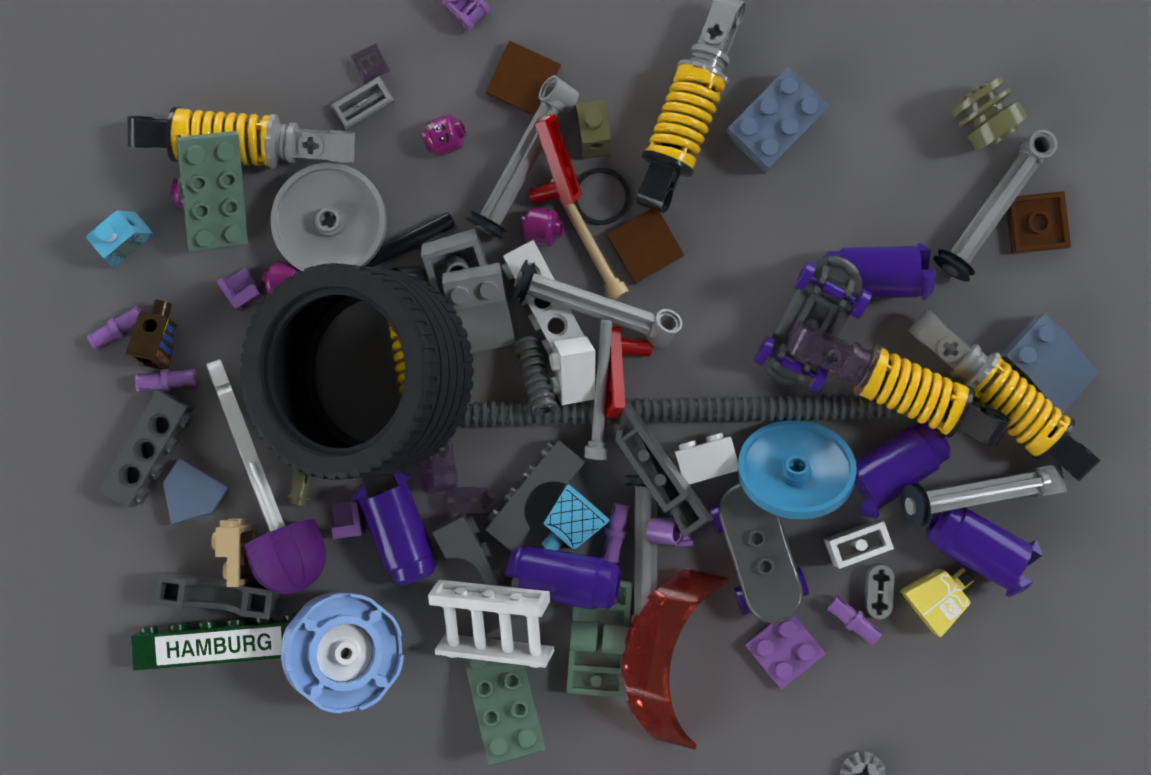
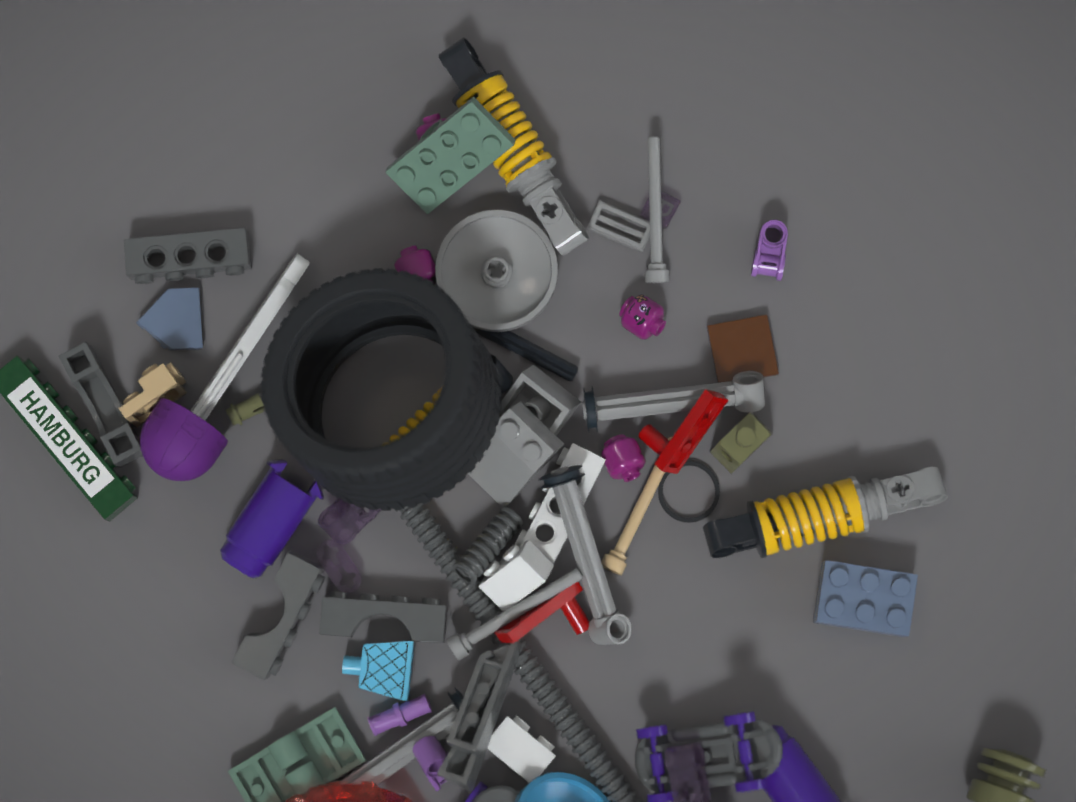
camera: 60 degrees right, 5 degrees down
(114, 329) = (274, 155): medium lavender pin -> none
(117, 237) = (355, 102): medium azure torso -> none
(153, 337) = (279, 199): dark brown torso -> none
(166, 380) = (258, 228): medium lavender pin -> none
(241, 290) = (383, 237): medium lavender panel -> none
(314, 648) = (125, 518): light blue piece -> none
(348, 520) = (247, 471): medium lavender panel -> none
(416, 99) = (656, 270): none -> light grey piece
(492, 599) = (270, 657): white fence -> none
(504, 709) = (183, 720): sand green plate -> none
(568, 576) = (328, 695): dark purple piece -> none
(645, 245) = (672, 561): reddish brown tile -> none

